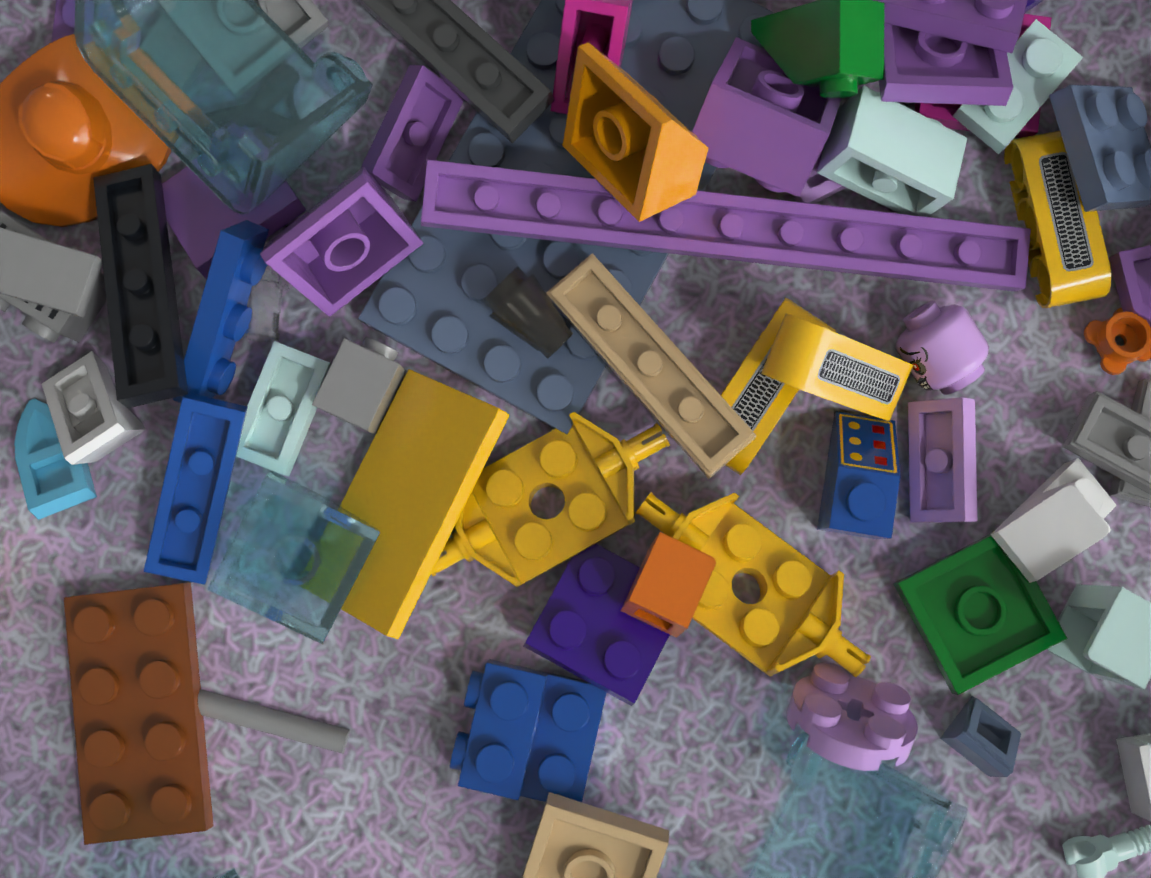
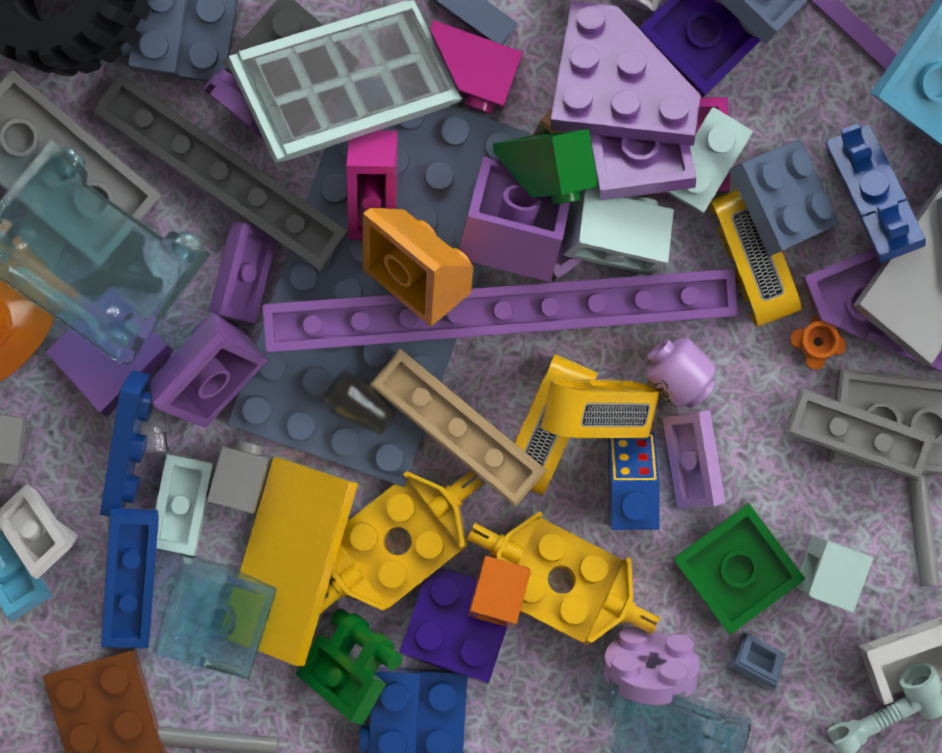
camera: 20 degrees left, 5 degrees up
(139, 287) = (58, 432): black plate -> none
(445, 666) = (341, 678): none -> green plate
(1056, 521) = (785, 491): white slope -> none

